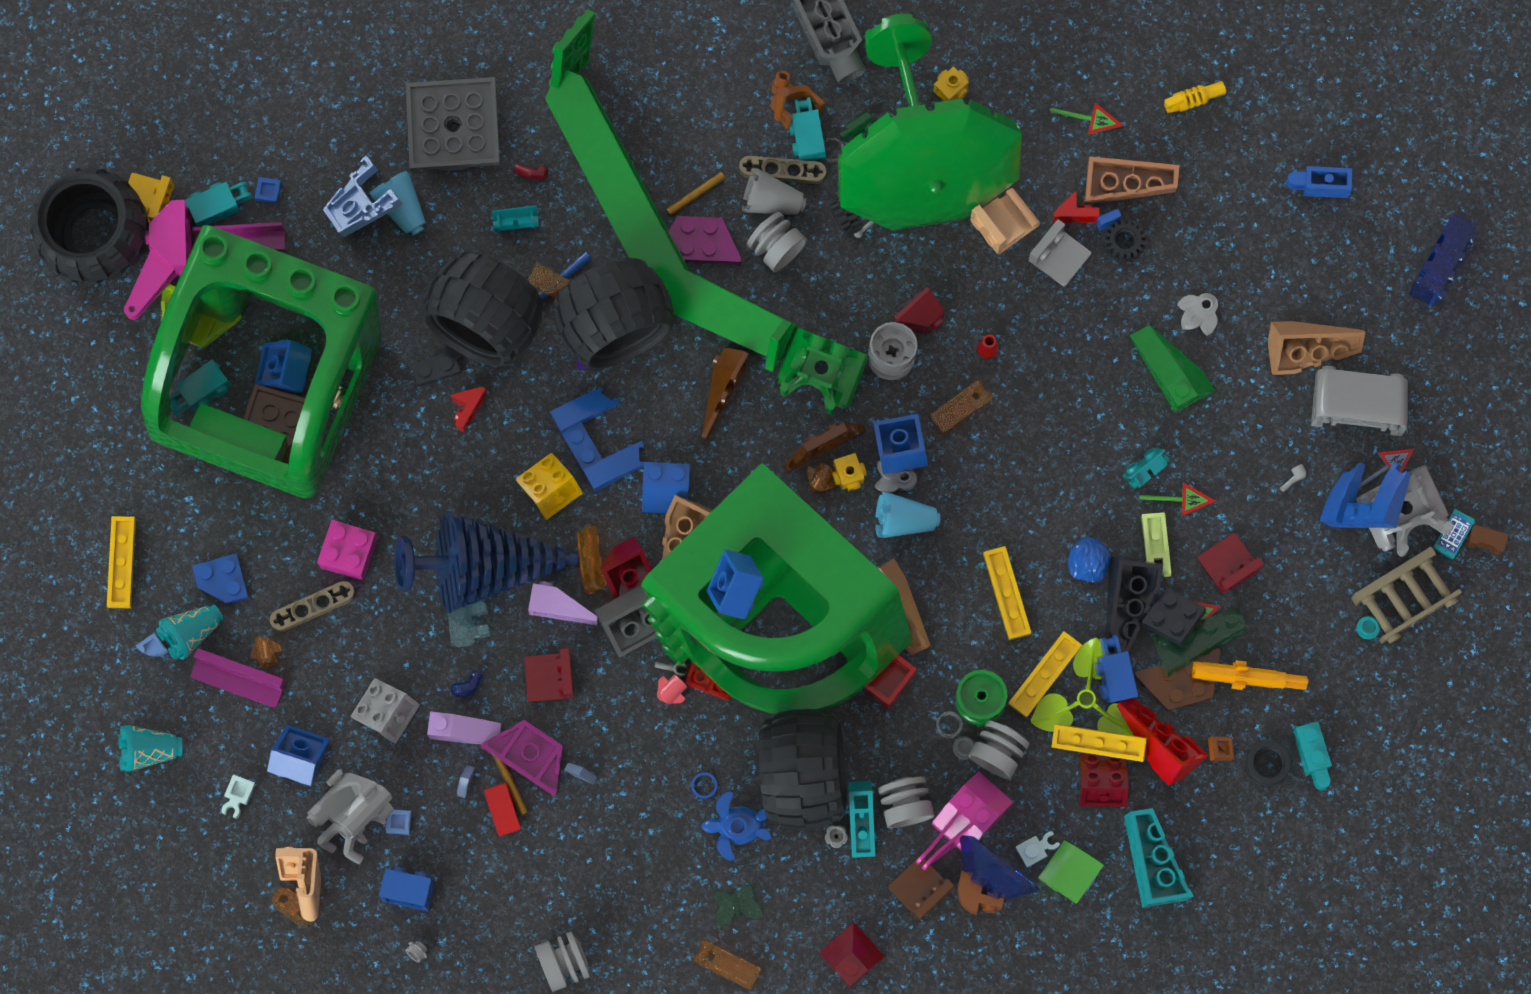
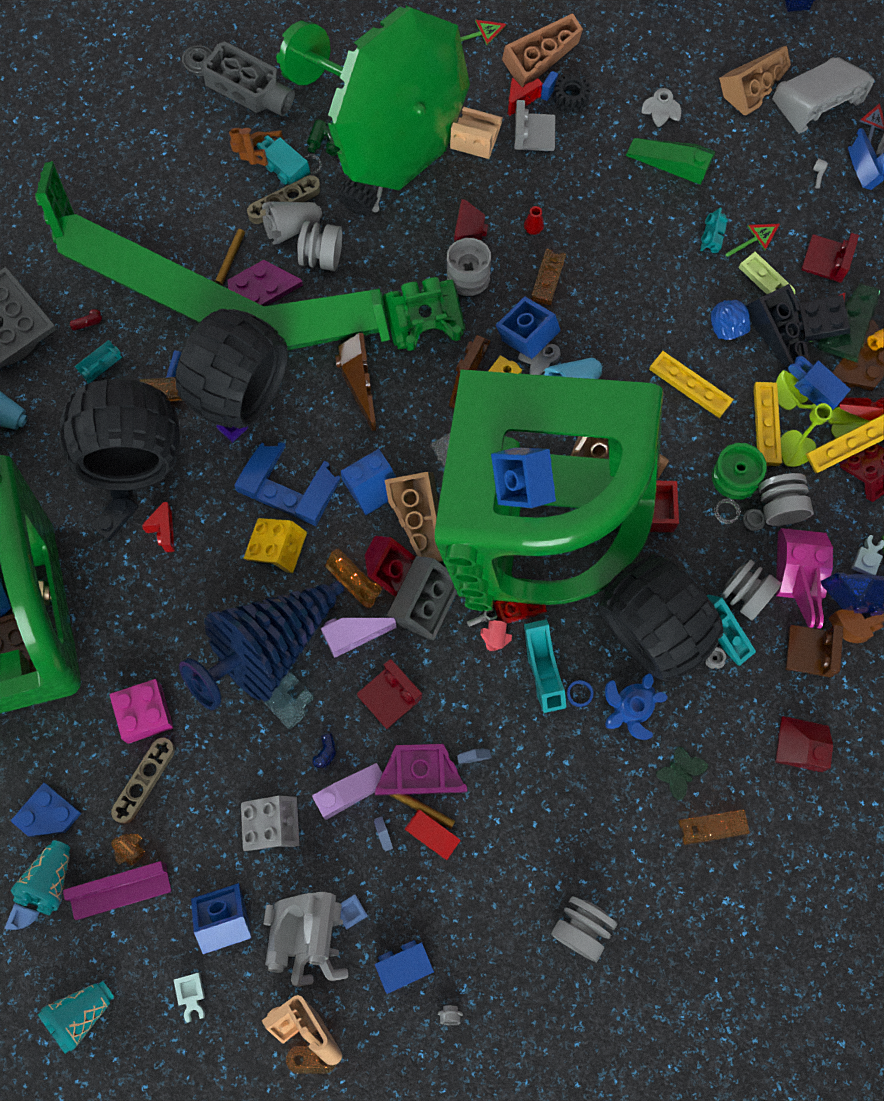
camera: 40 degrees left, 5 degrees down
(688, 742) = (544, 668): none -> teal arch

